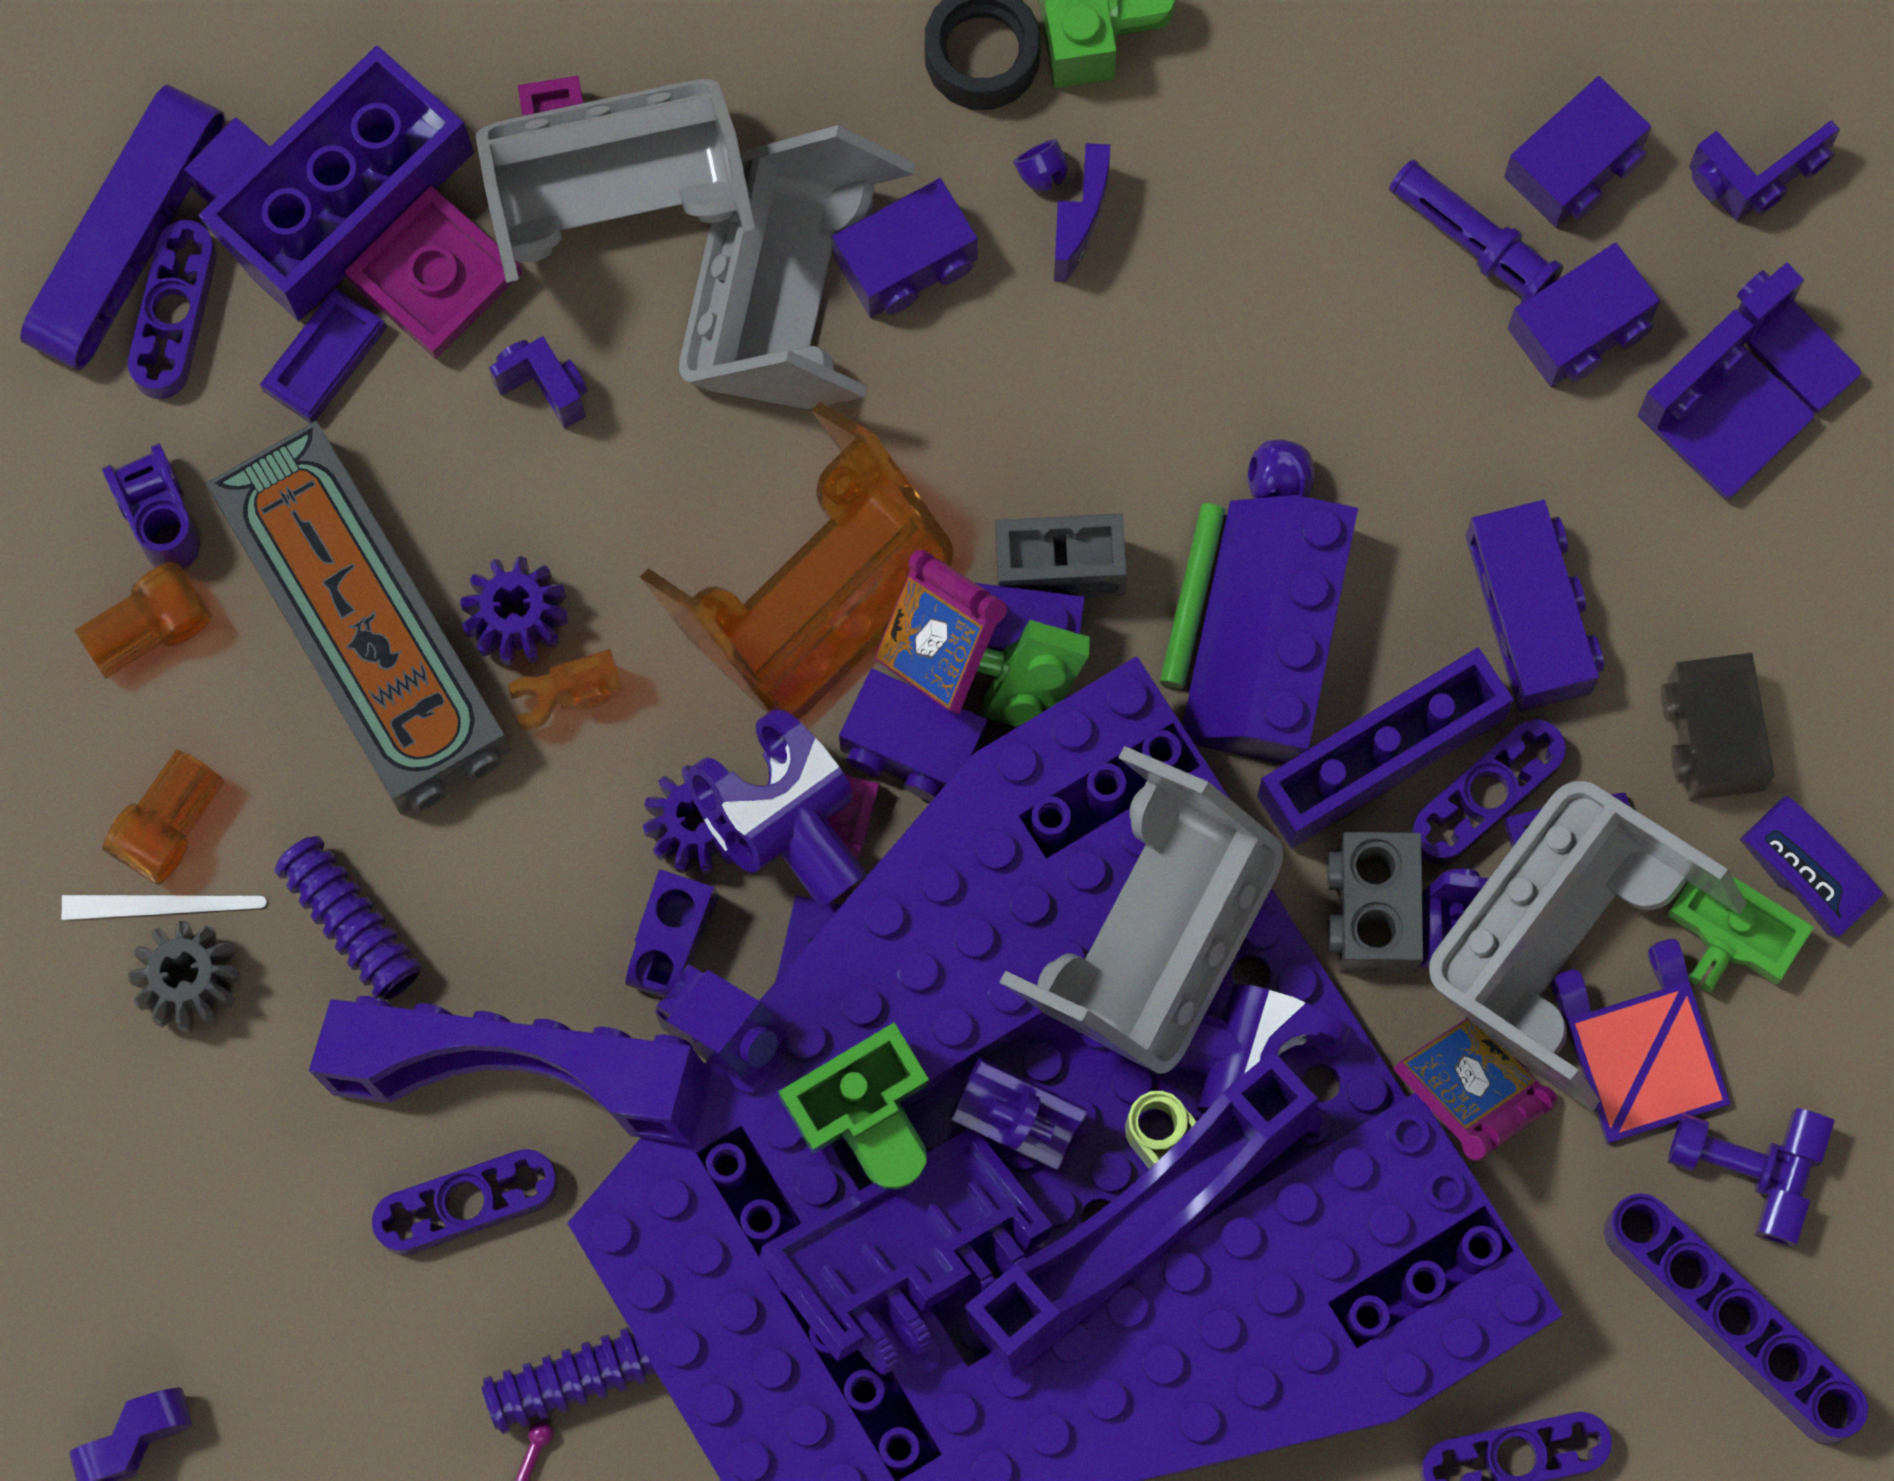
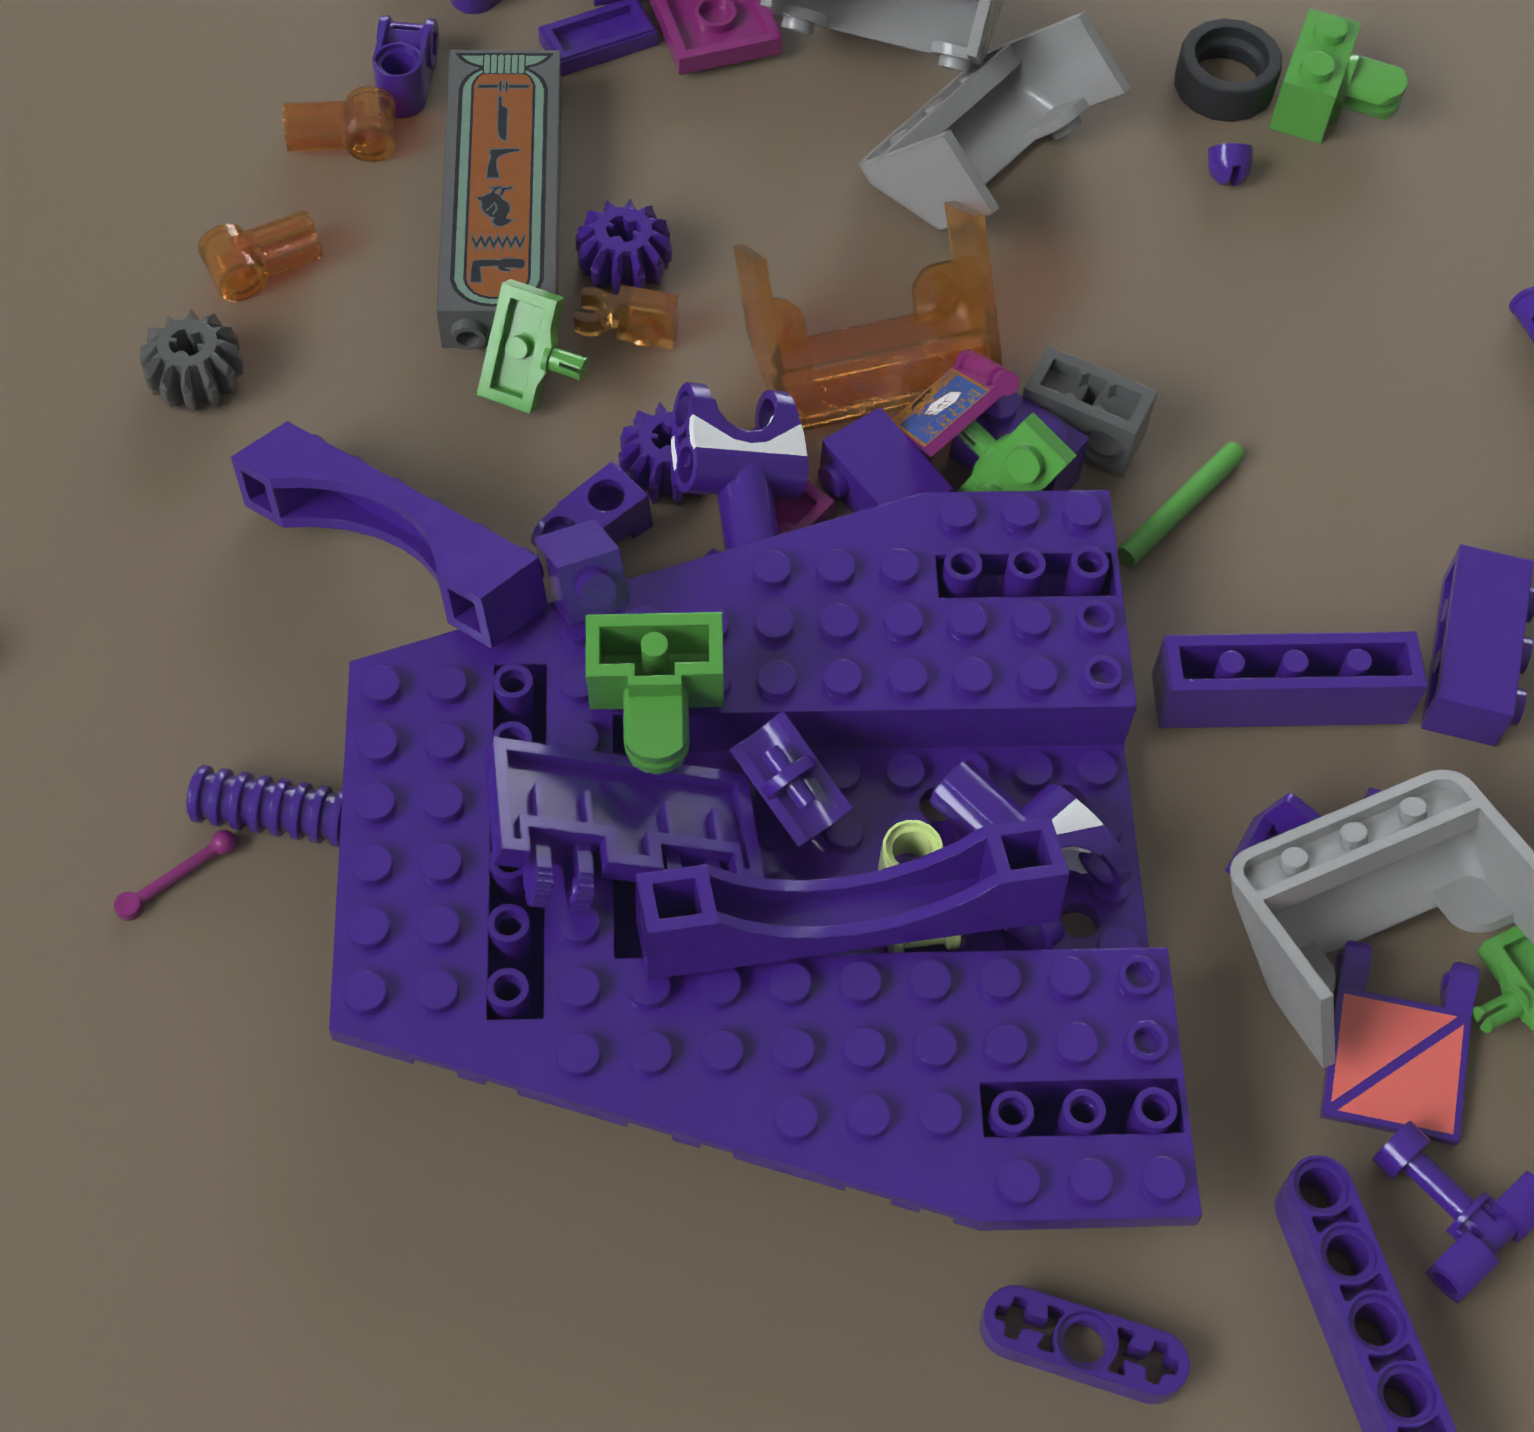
camera: 25 degrees right, 15 degrees down
(137, 905) = (172, 296): white sticker -> none
(347, 918) = (346, 383): dark purple piece -> none
(423, 1231) = (275, 612): dark purple beam -> none
(501, 789) = (525, 348): none -> bright green plate
(558, 382) = (747, 102): dark purple bracket -> none
(906, 249) = (1088, 161): dark purple brick -> none
(1080, 219) = (1243, 204): dark purple slope -> none
(1171, 925) = (1026, 688): light grey windscreen -> none
(1269, 626) = (1242, 547): dark purple slope -> none
(1280, 470) = (1308, 447): dark purple piece -> none
(1392, 903) = (1217, 802): dark grey brick -> none
(1475, 1088) = (1222, 986): piece -> none
(1510, 748) = (1380, 750): dark purple beam -> none

